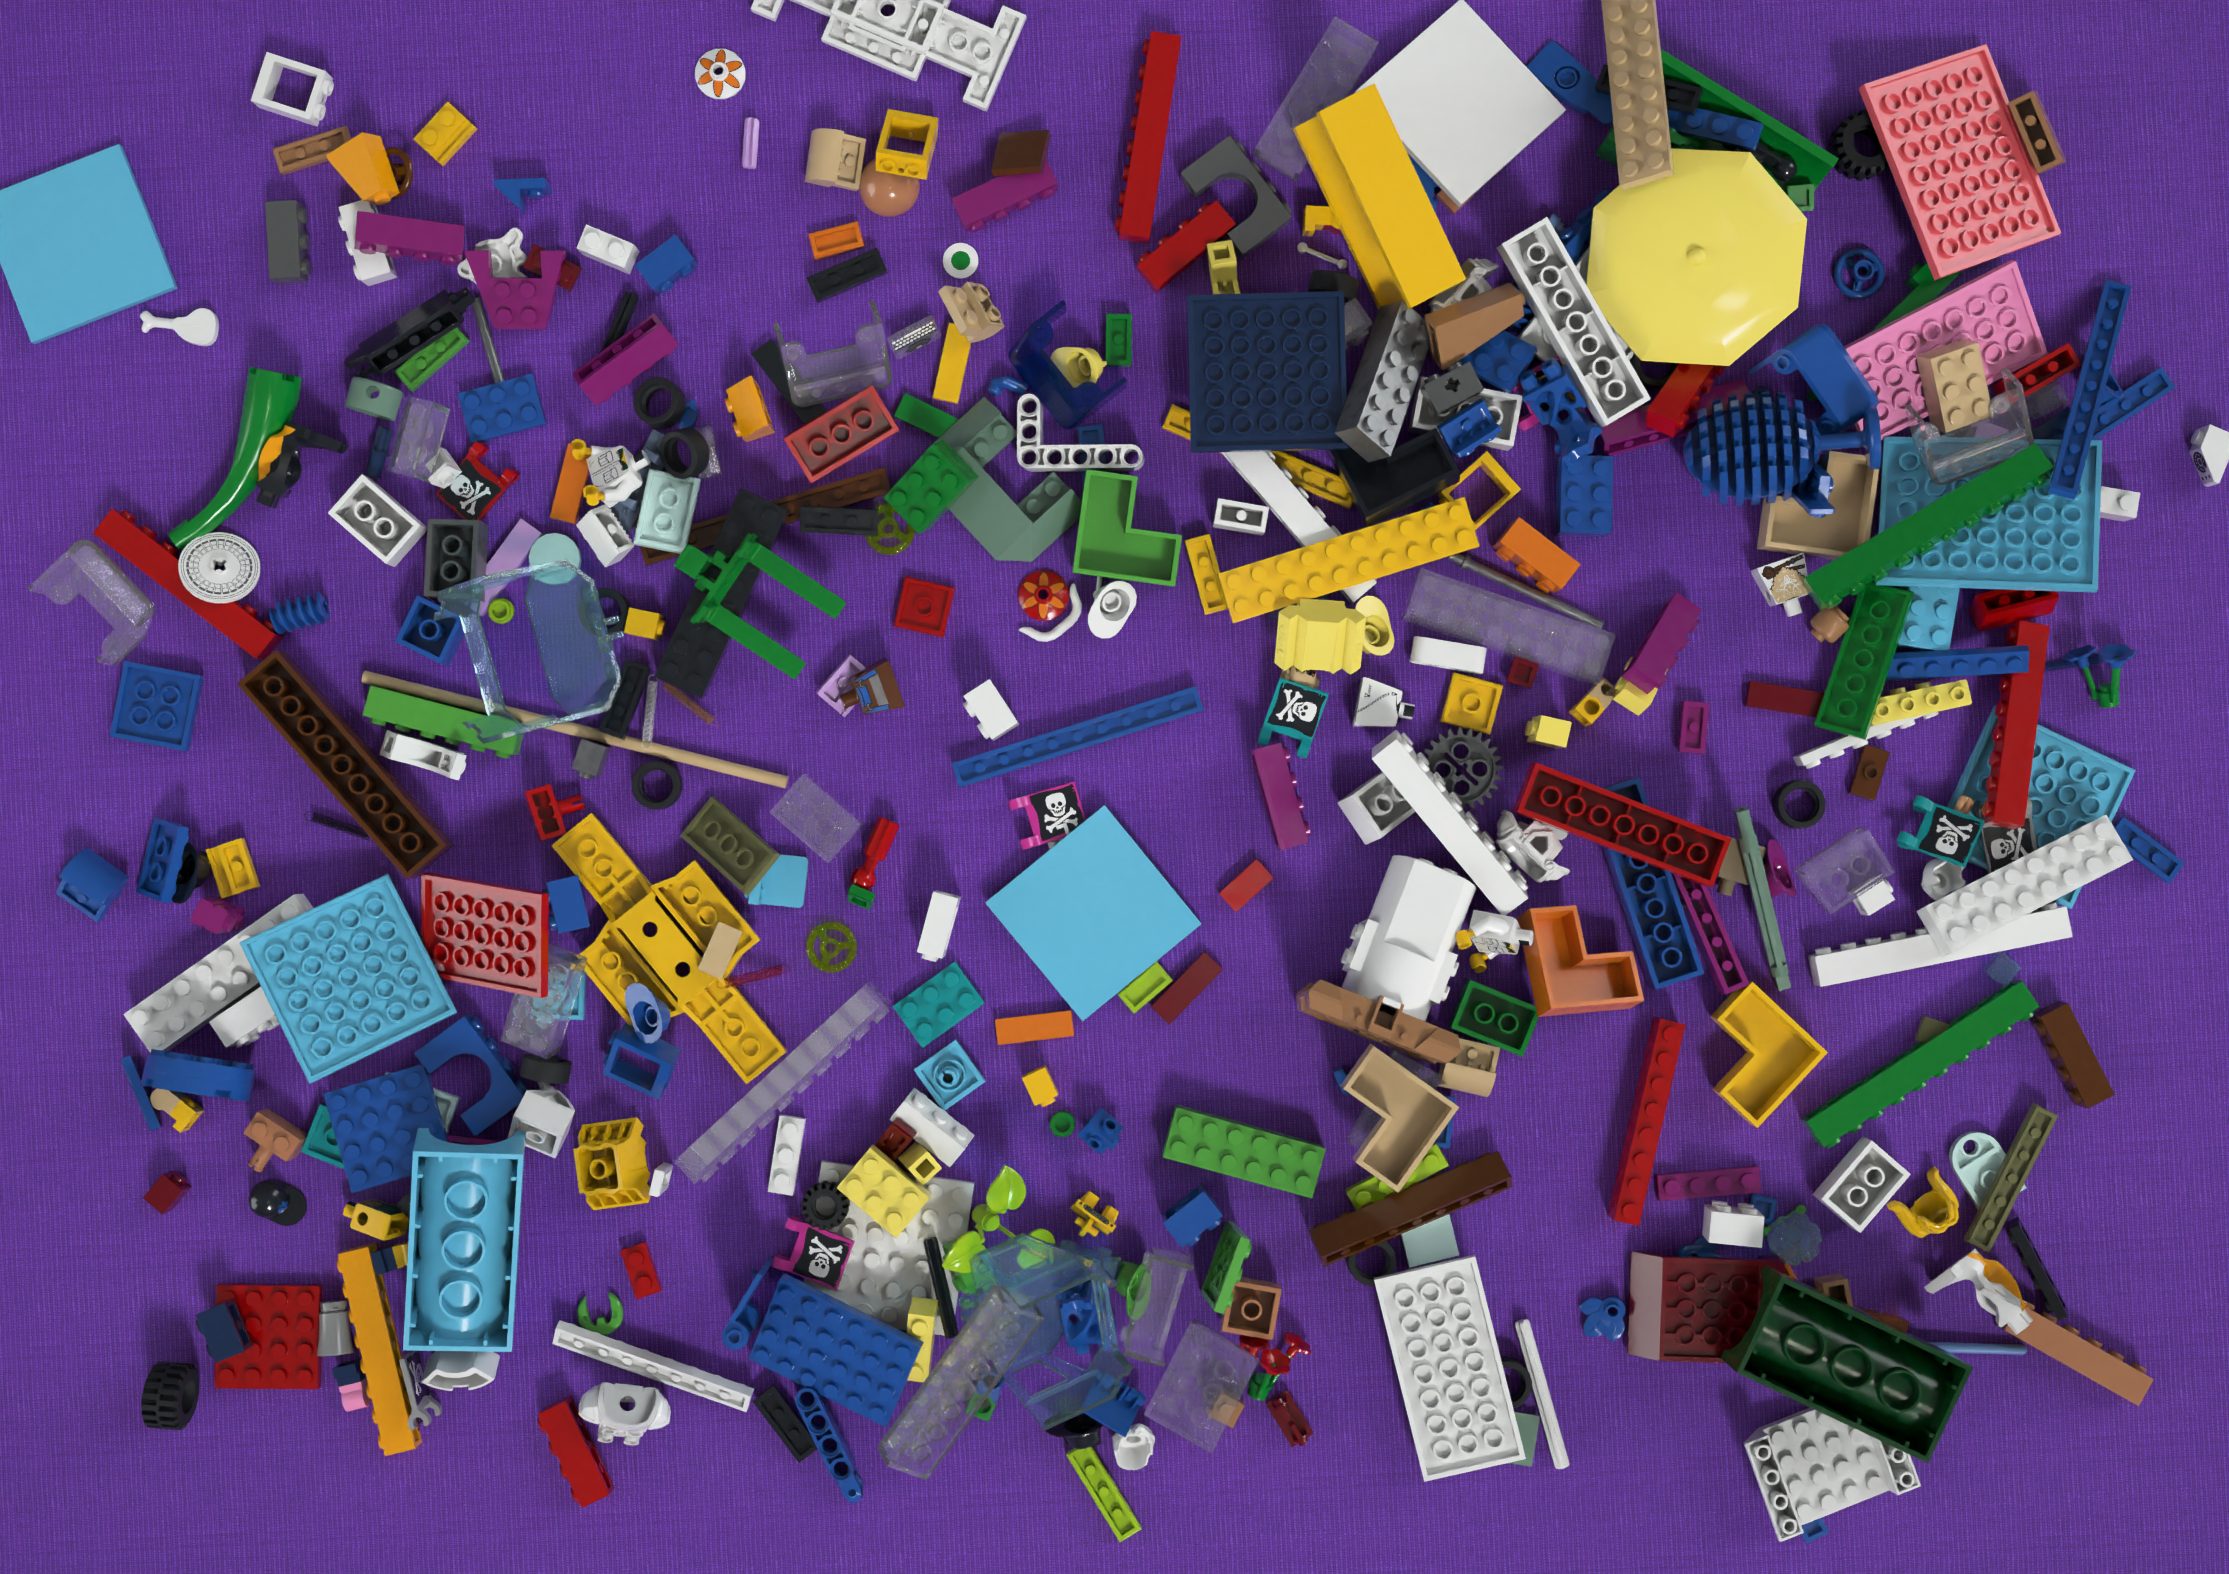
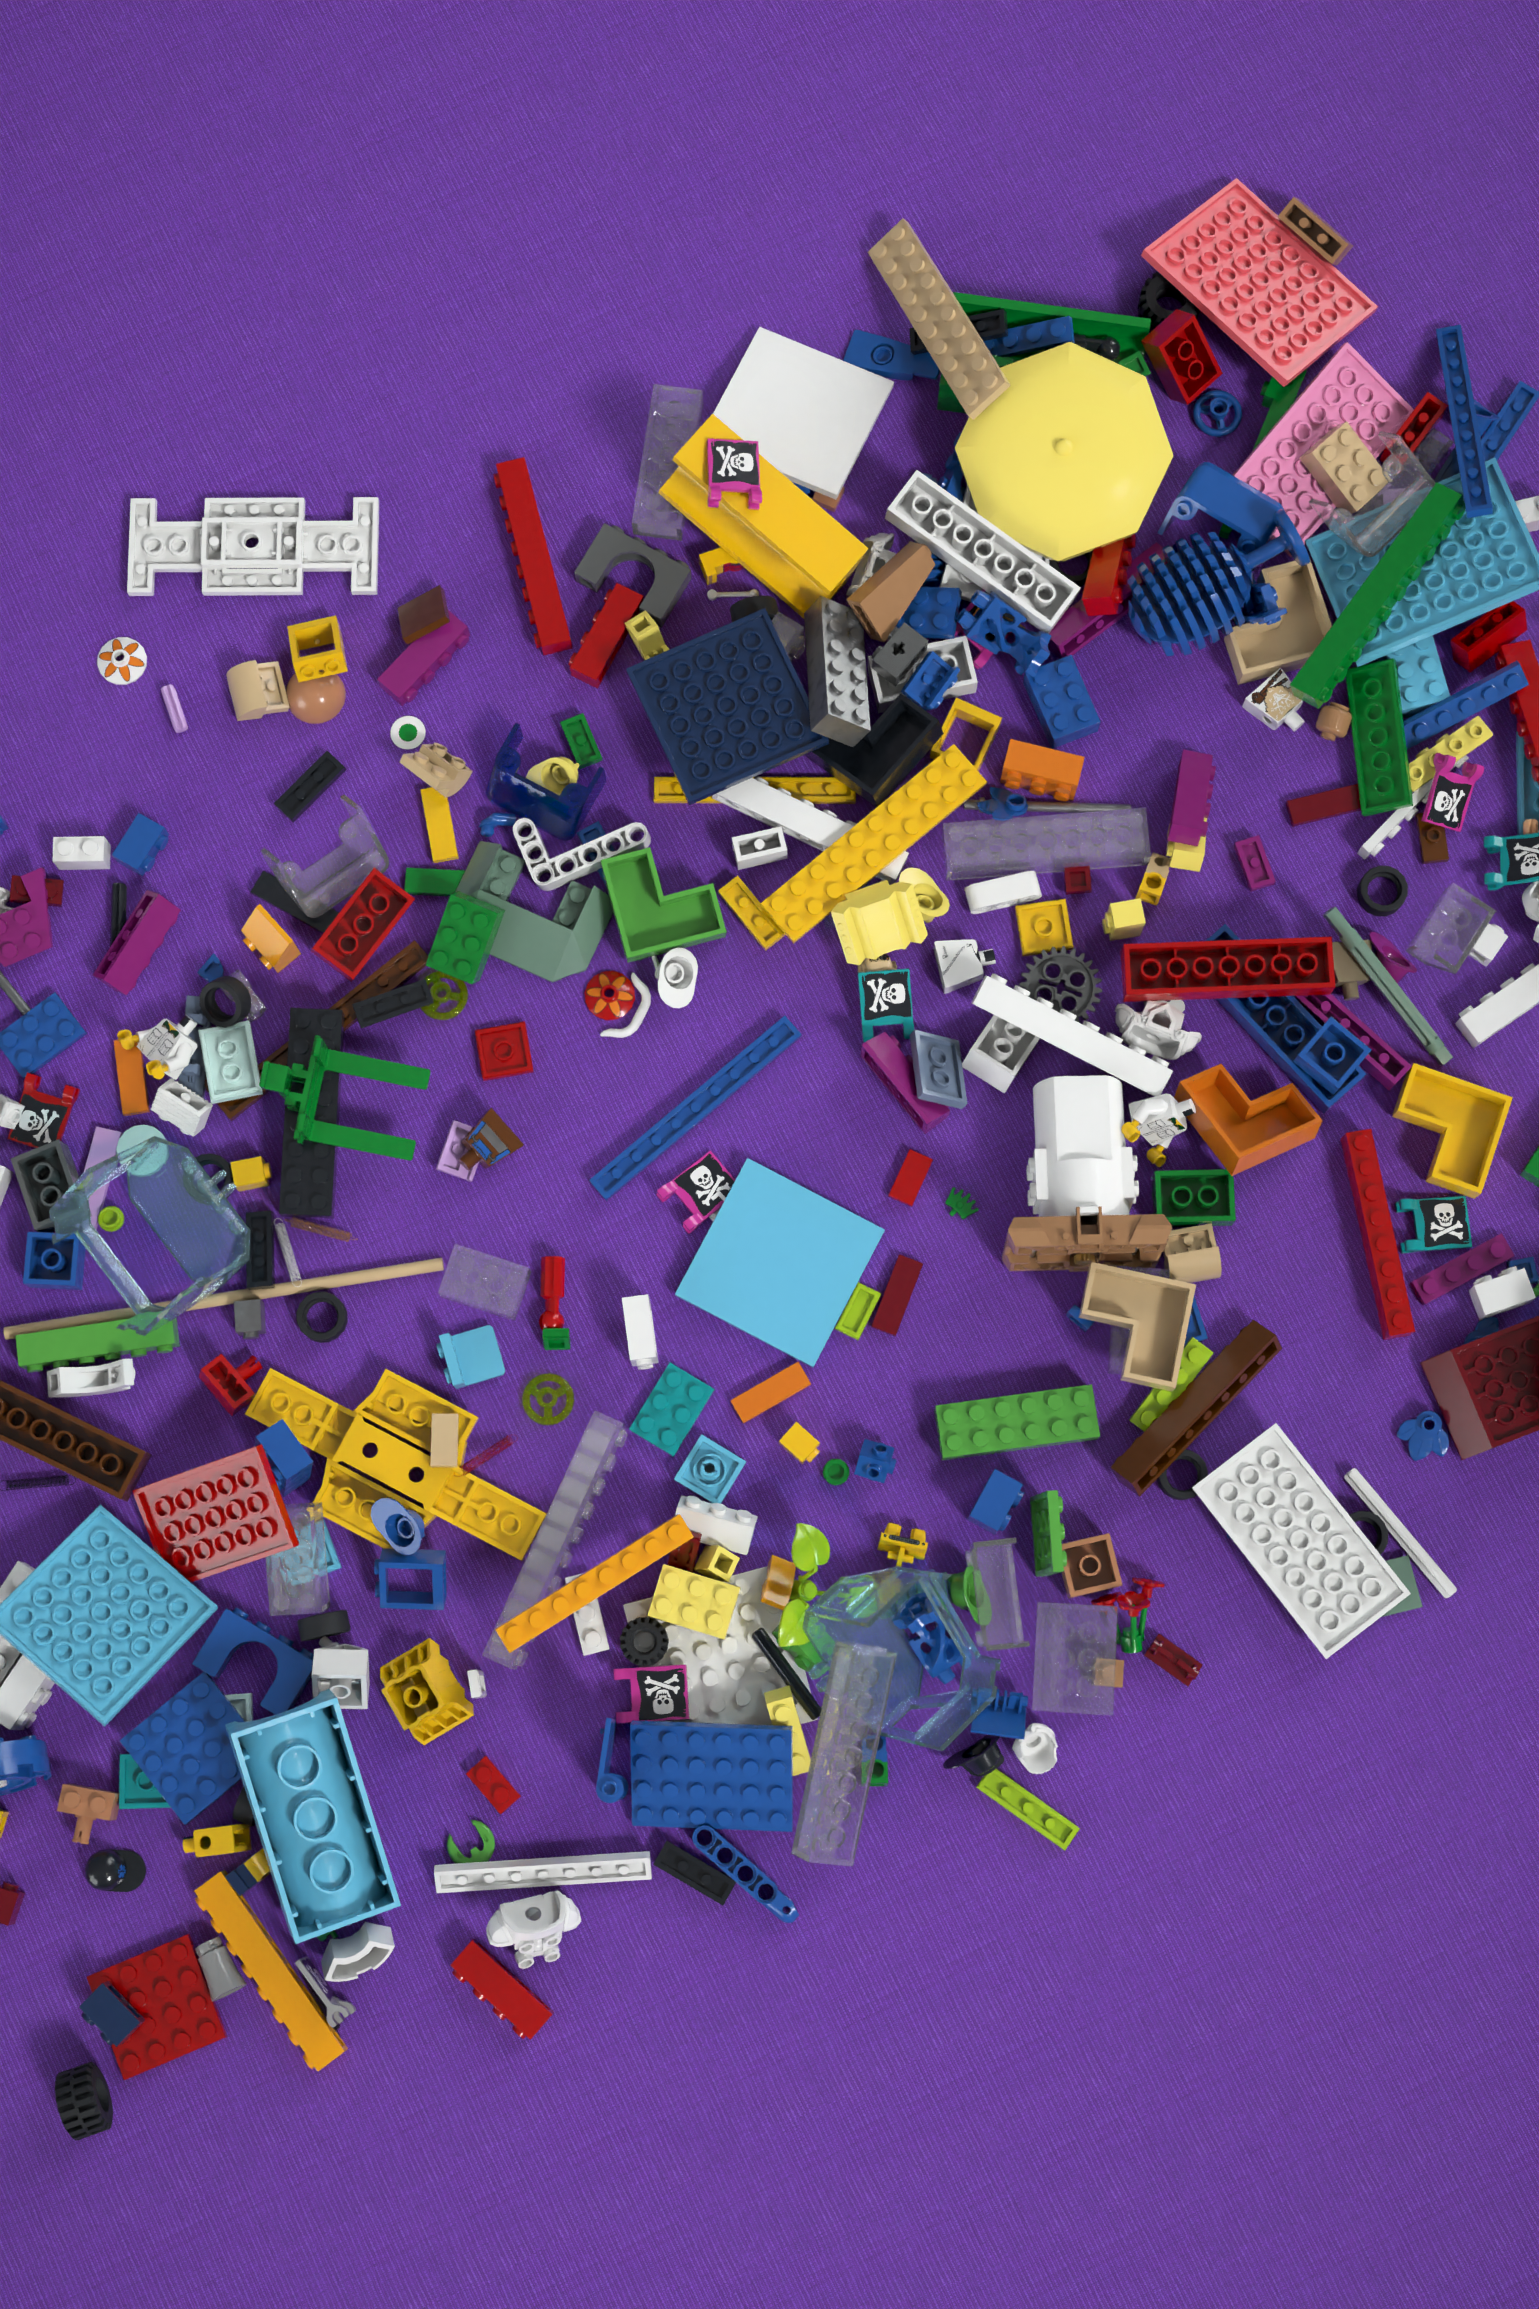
camera: 25 degrees left, 10 degrees down
(352, 1385) = (258, 2018): leg -> none
(644, 394) = (170, 958): black tyre -> none
(730, 845) = (413, 1340): olive tile -> none
(798, 1142) = (593, 1583): none -> light orange brick
(836, 240) = (287, 761): orange tile -> none
(914, 337) = (394, 815): slope -> none
(967, 1204) = (778, 1583): none -> light orange slope
(990, 710) = (605, 1114): white brick -> none
(1280, 929) = (960, 1204): none -> green piece
(1314, 799) = (938, 1069): none -> sand blue plate
(1370, 148) = (733, 468): none -> flag
(1430, 1242) = (1228, 1433): light aqua tile -> none
(1485, 573) = (1003, 804): none -> blue plate
(1680, 947) = (1332, 1055): none -> blue brick
(1705, 1132) = (1437, 1224): none -> flag
(1851, 206) = (1182, 356): none -> red brick
(1906, 741) = (1450, 792): none -> flag

